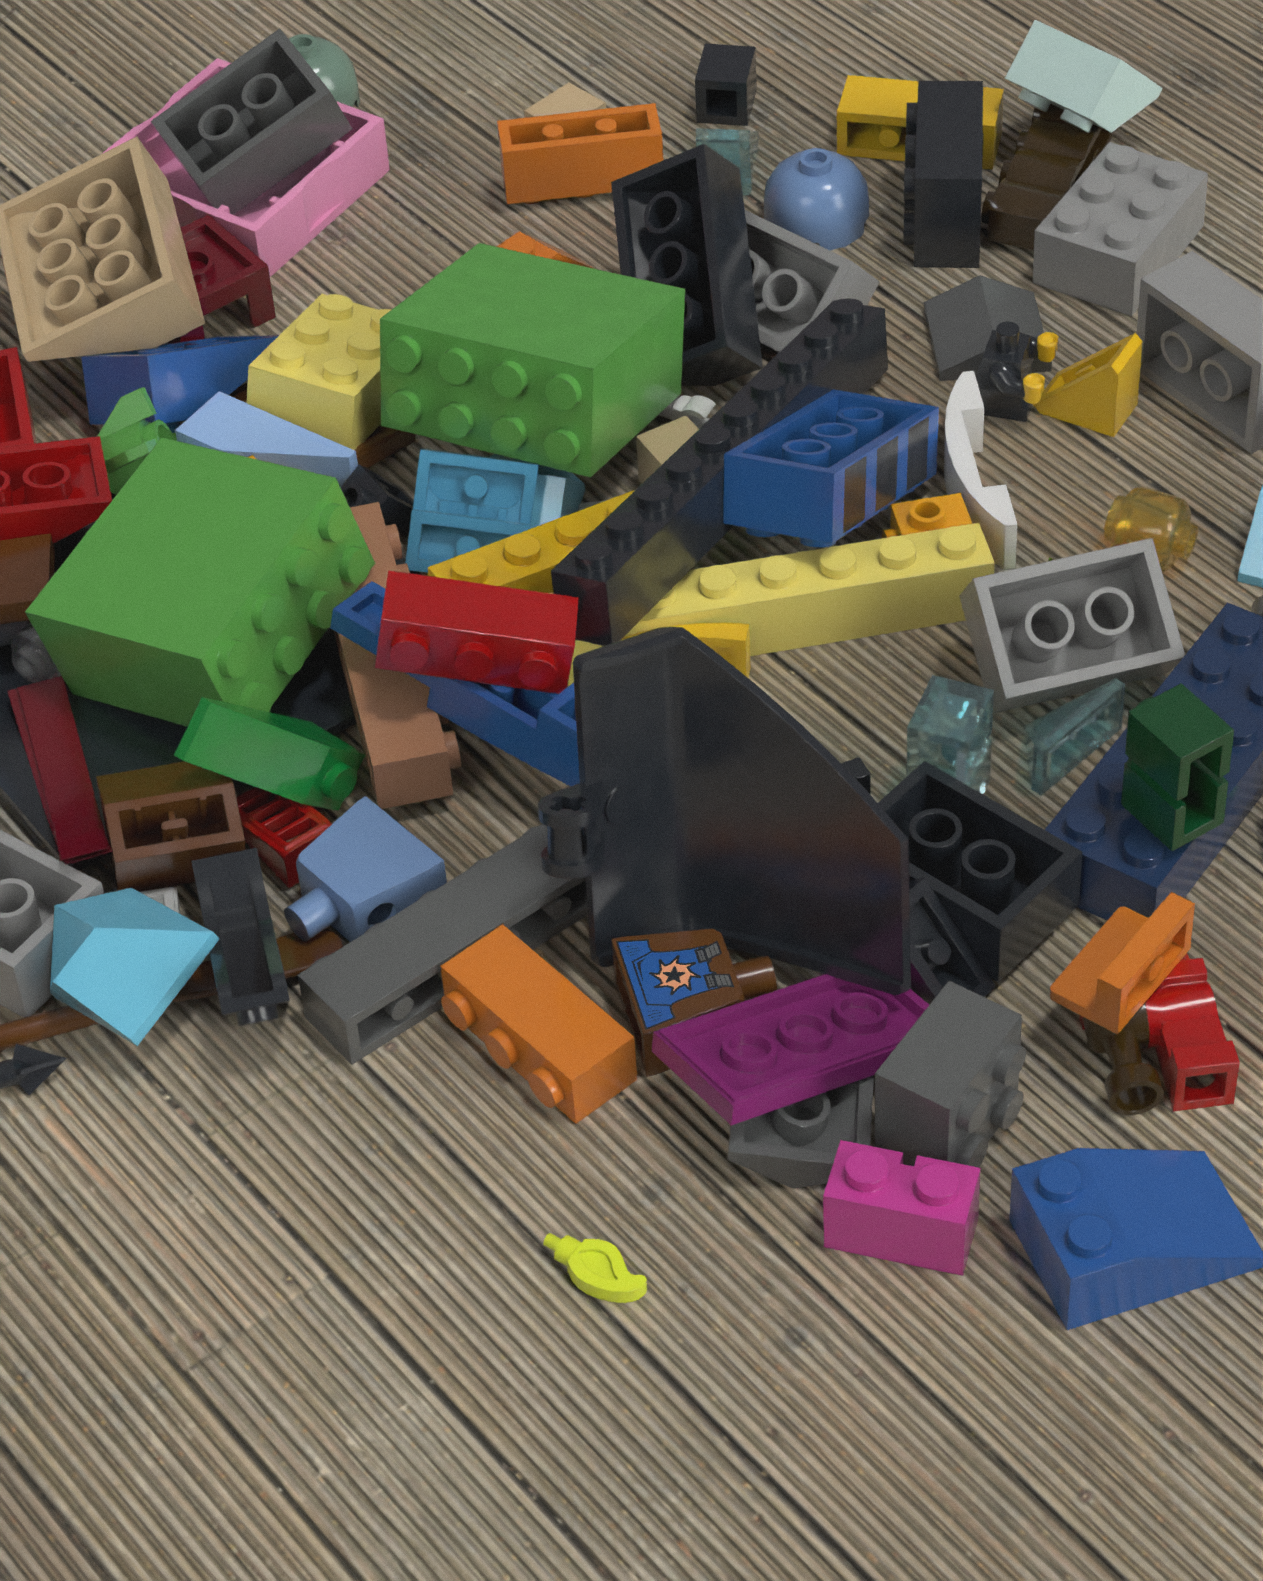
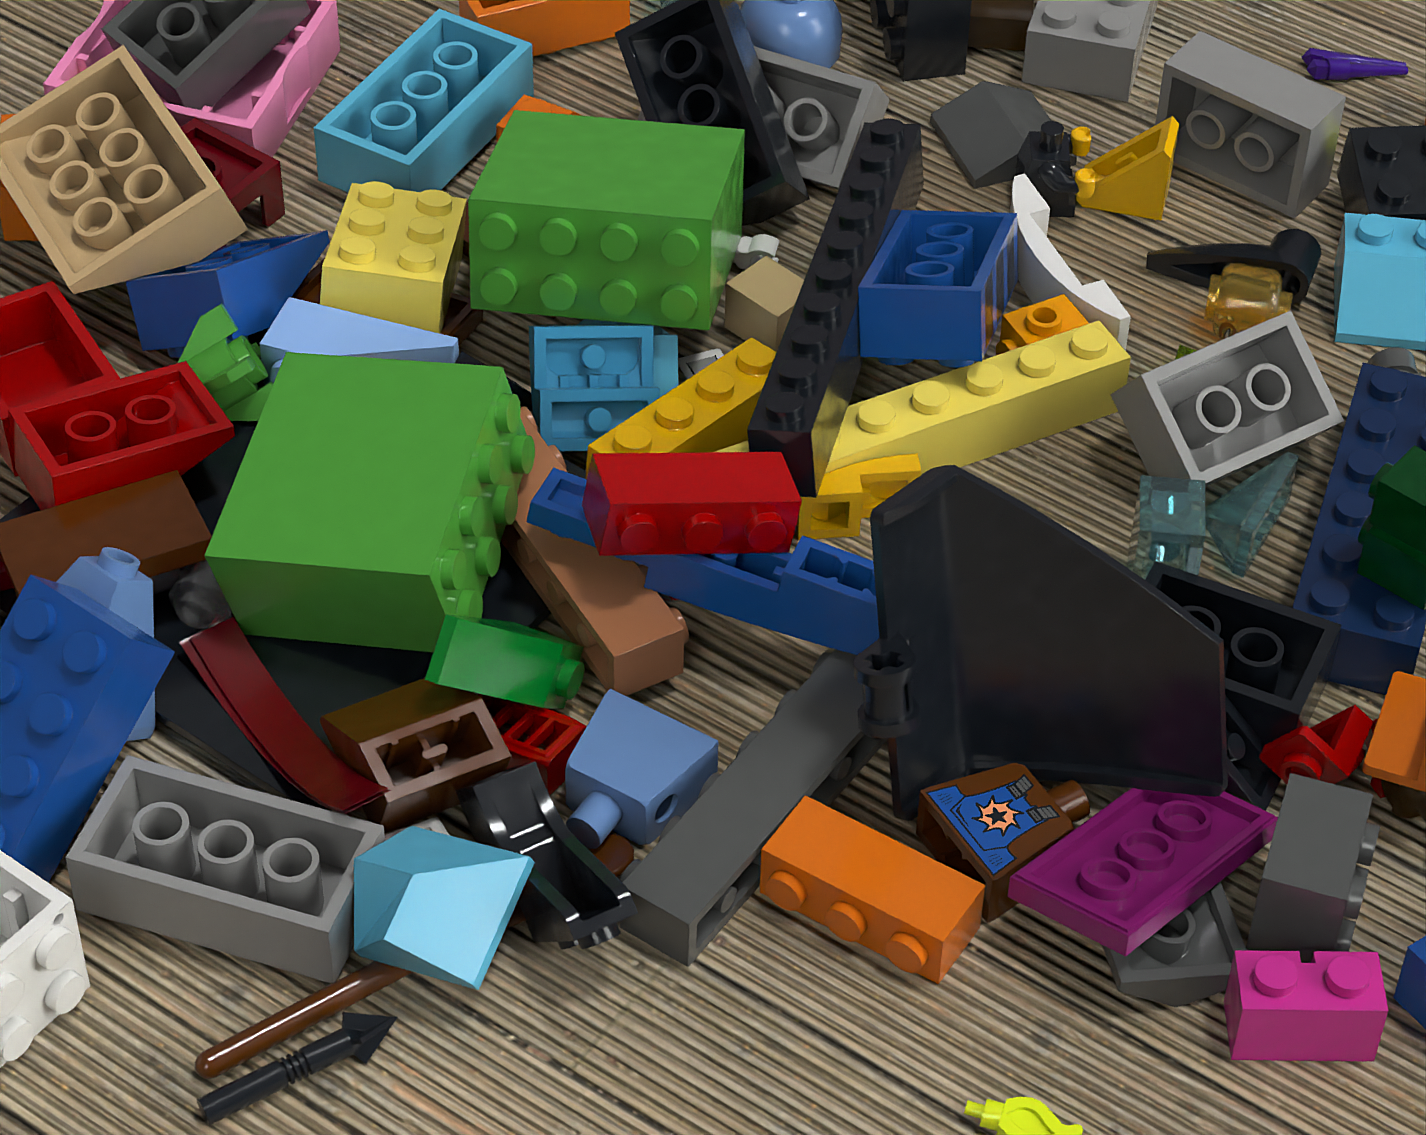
camera: 20 degrees left, 0 degrees up
(424, 226) = (425, 107): none -> medium azure brick
(1017, 984) = (1323, 751): none -> red bracket
(1211, 496) = (1291, 253): none -> black piece

